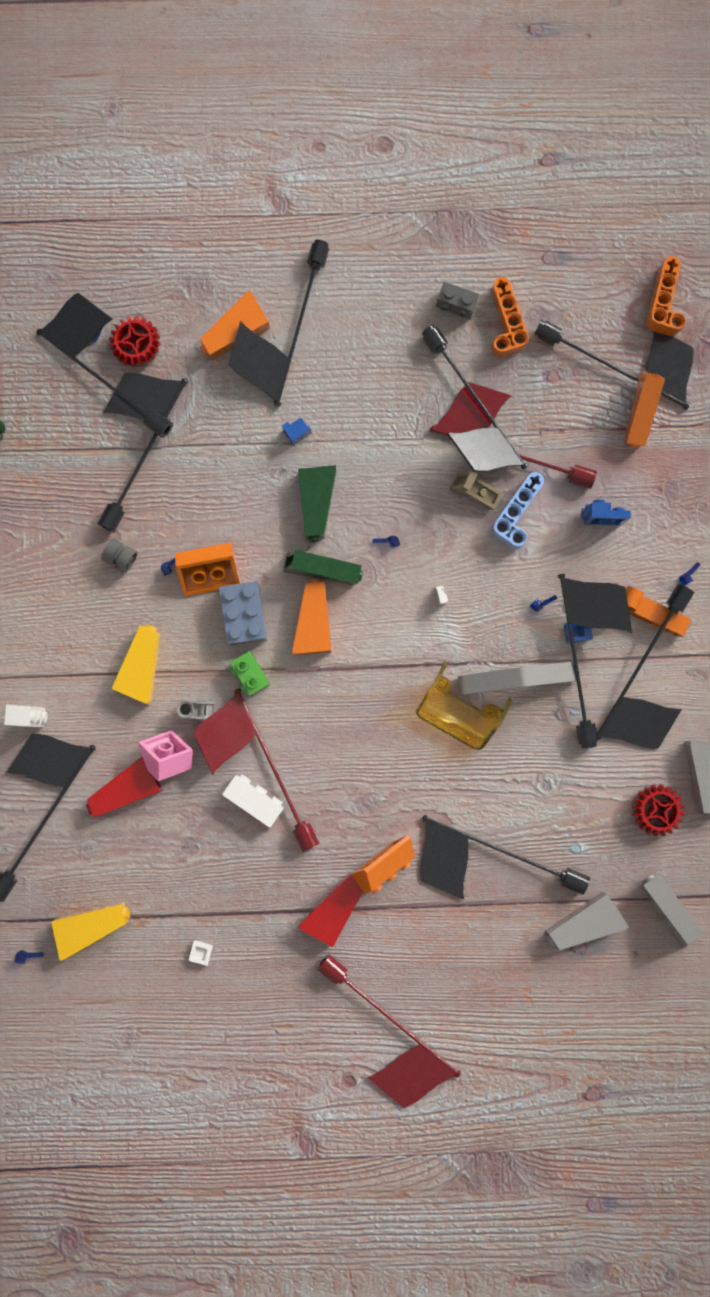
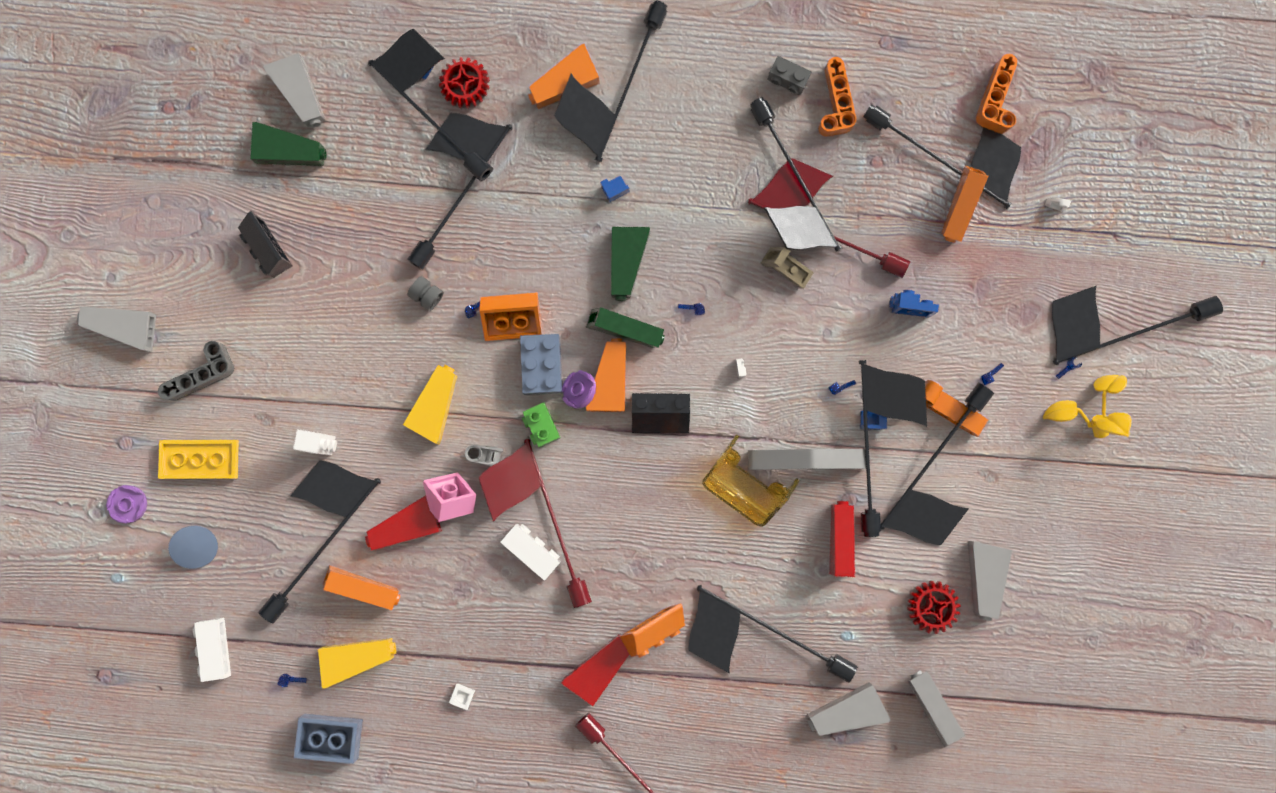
camera: 15 degrees right, 0 degrees up
(71, 1010) = (328, 738): none -> sand blue brick
(87, 856) = (360, 588): none -> orange slope
(283, 634) = (578, 389): none -> medium lavender tile
(367, 648) = (660, 413): none -> black slope
(519, 506) = (828, 288): light blue beam -> none
(561, 754) = (842, 540): none -> red slope

